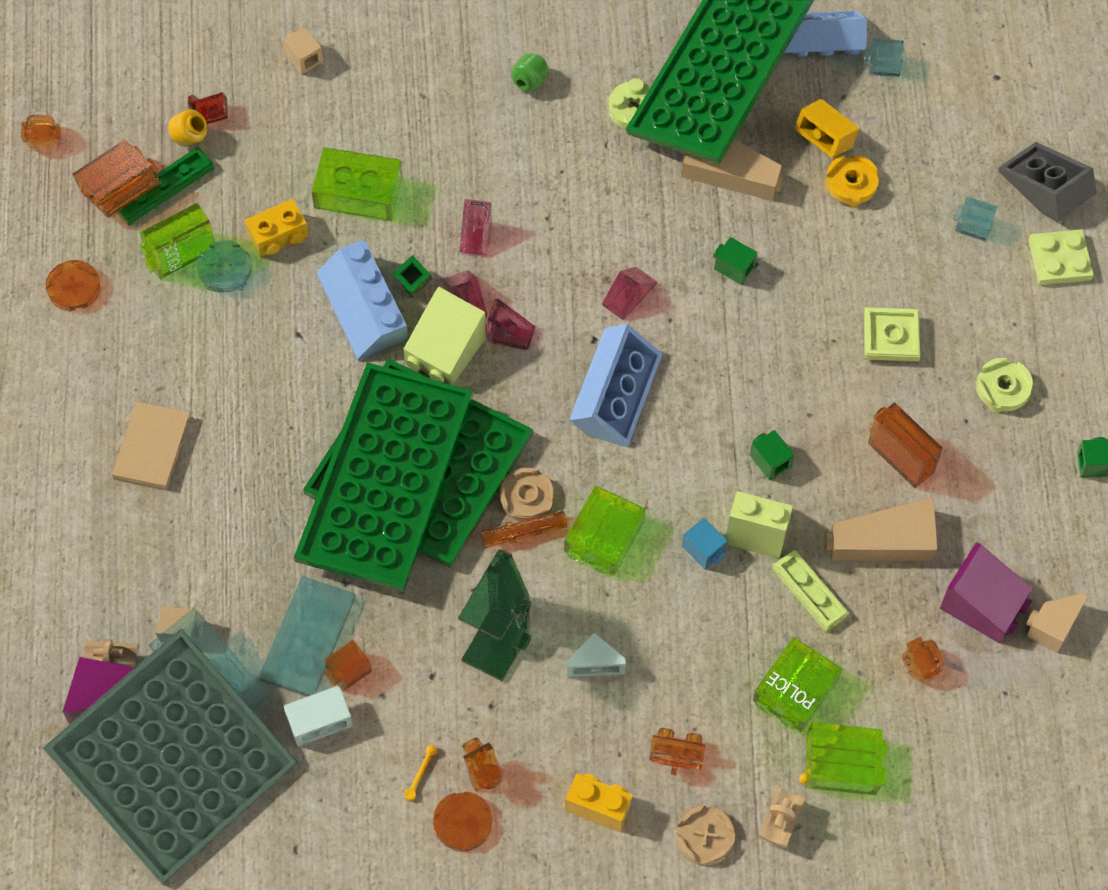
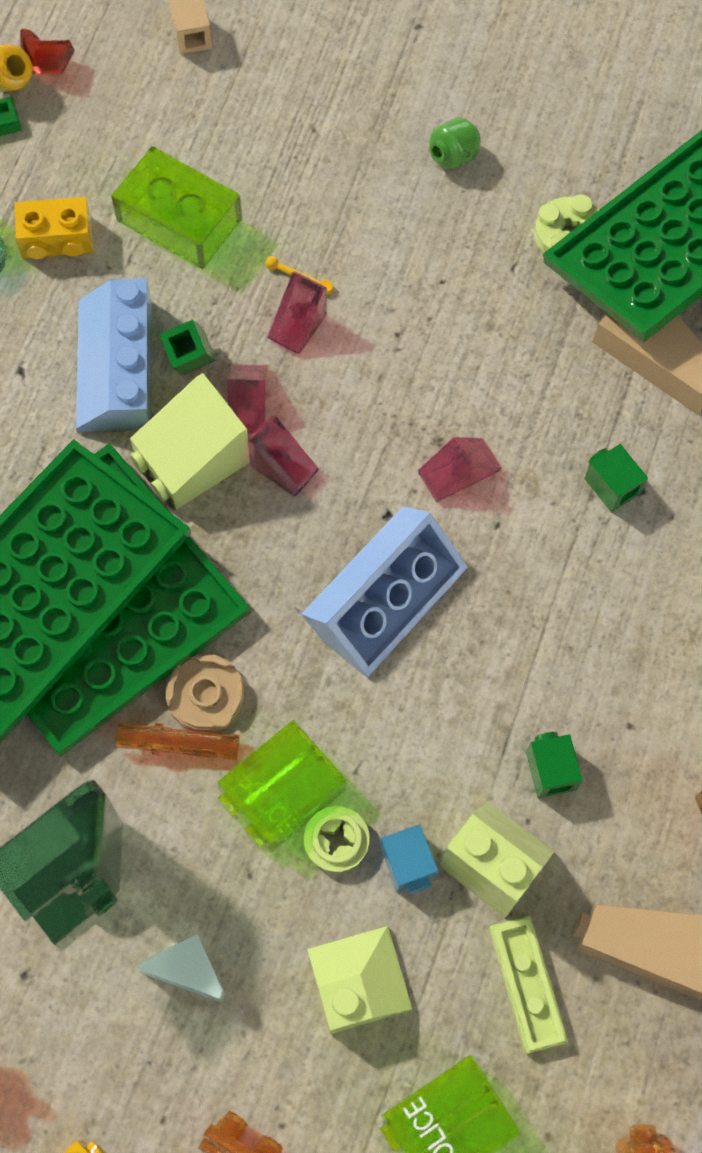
camera: 20 degrees right, 5 degrees up
(439, 199) = (272, 263): none -> yellow hinge
(663, 543) = (327, 822): none -> yellowish green gear
(704, 628) = (359, 980): none -> yellowish green slope

